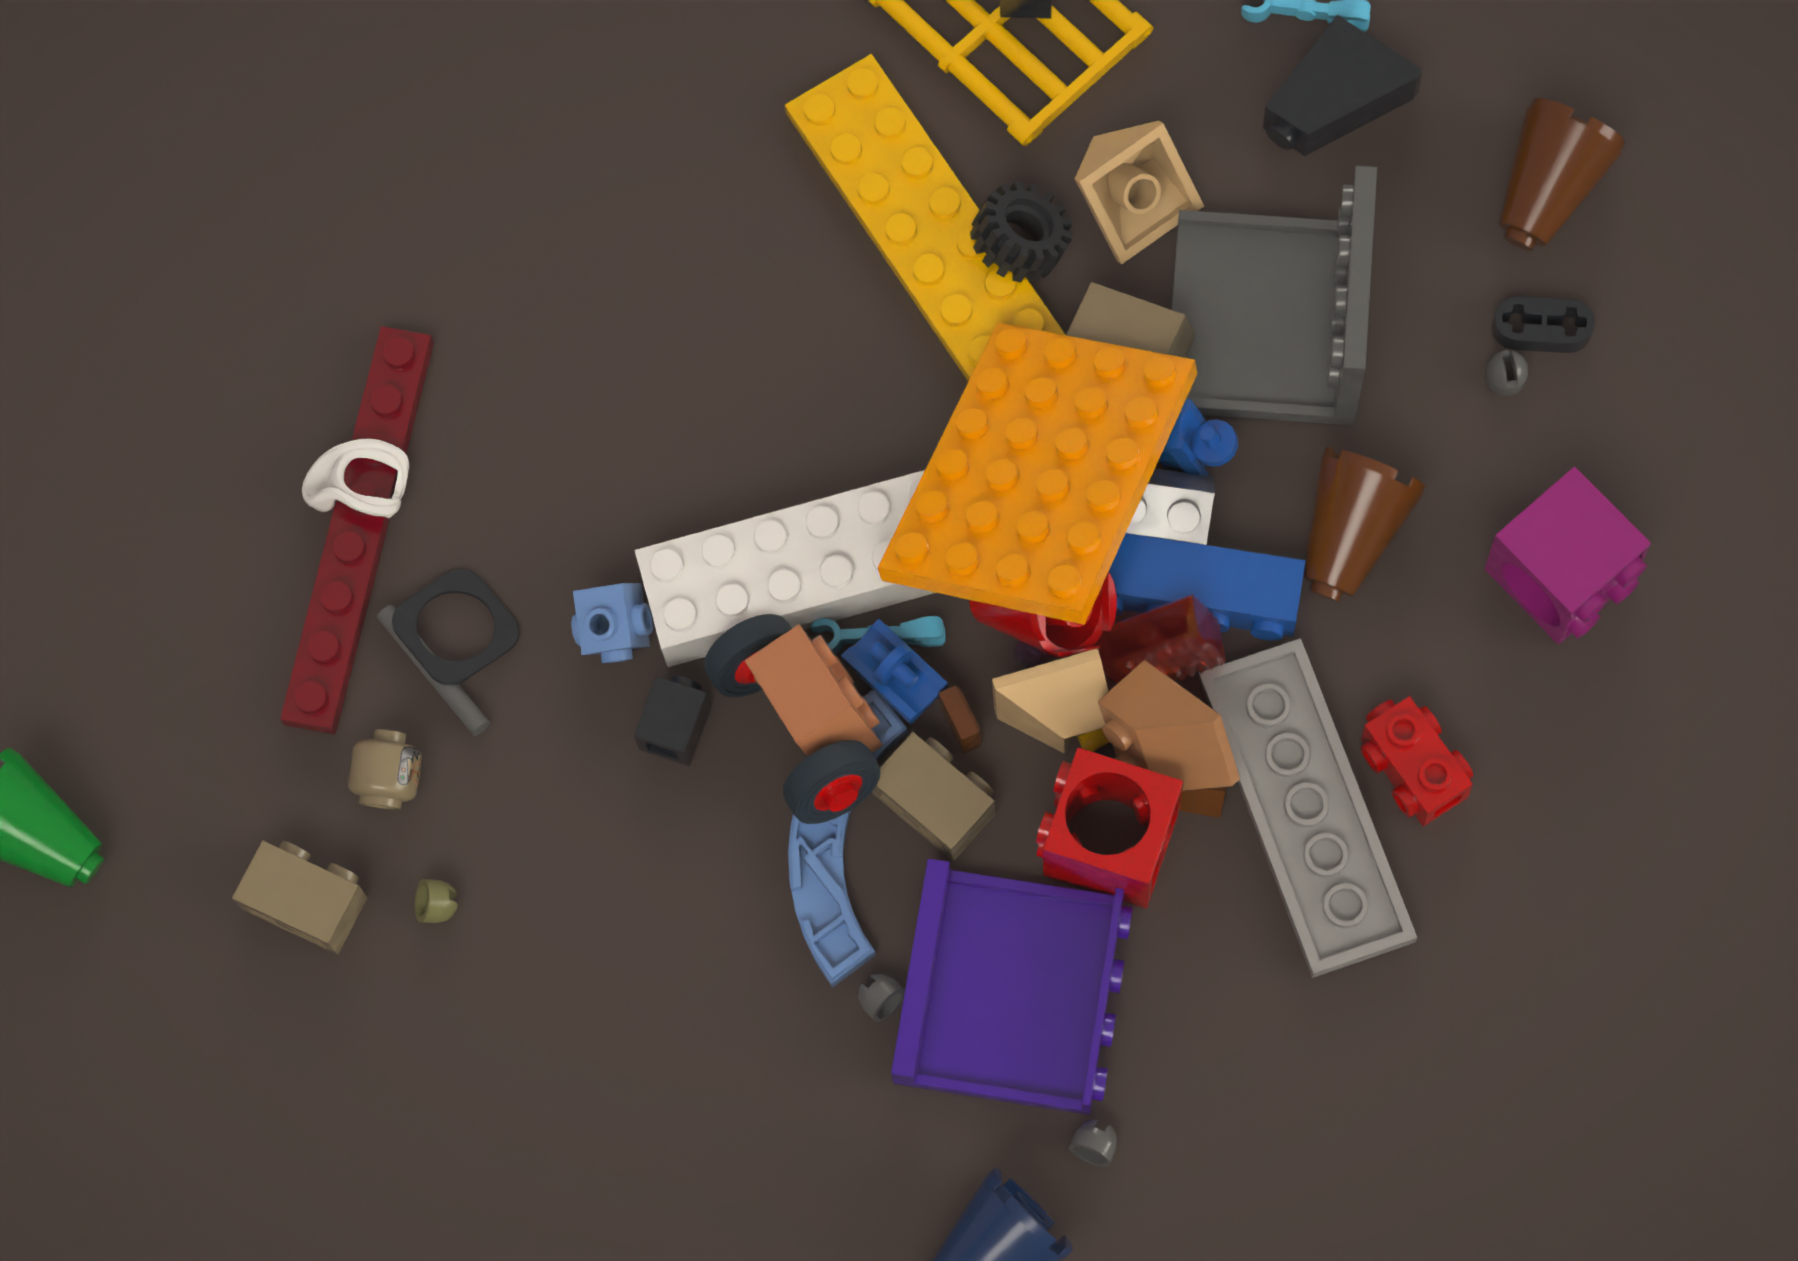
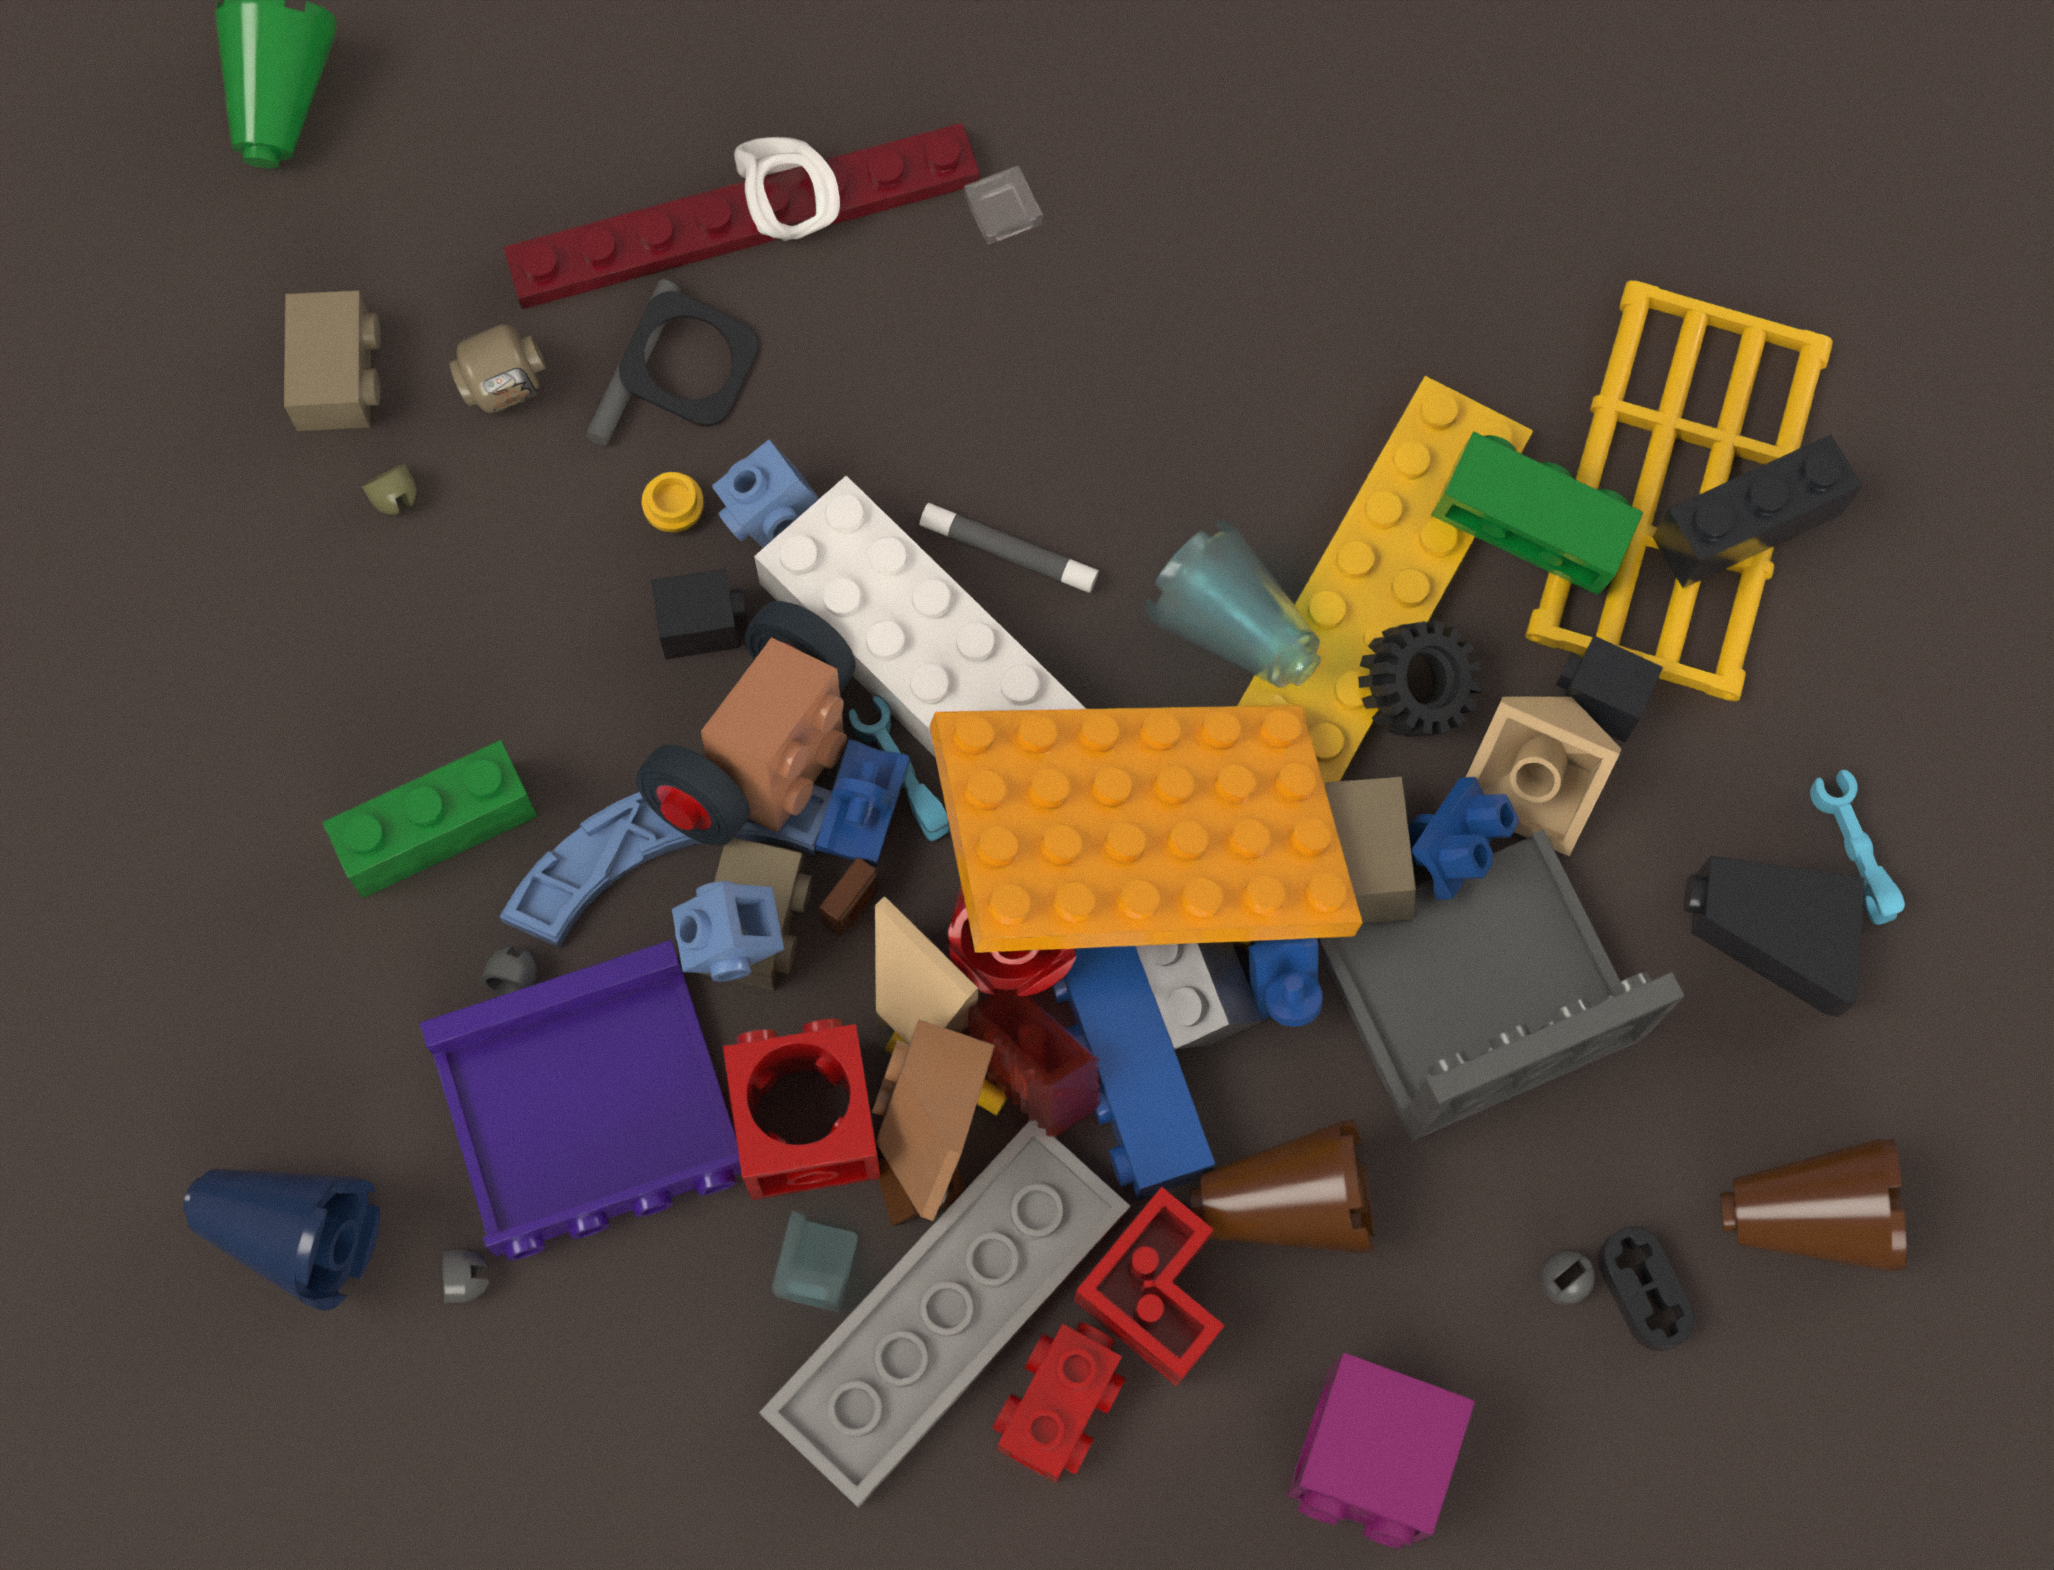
camera: 50 degrees right, 0 degrees up
(465, 332) = (1003, 205): none -> clear tile
(568, 696) = (672, 502): none -> yellow plate
(728, 994) = (429, 819): none -> green brick
(746, 470) = (1009, 547): none -> dark grey bar
(902, 327) = (1234, 609): none -> clear light blue cone
(943, 82) = (1537, 512): none -> green brick
(952, 806) = (727, 929): none -> medium blue brick
(1097, 106) = (1610, 685): none -> black brick
(1152, 271) = (1458, 836): none -> blue hips
(1222, 883) = (814, 1263): none -> clear light blue panel
(1368, 662) = (1136, 1291): none -> red brick

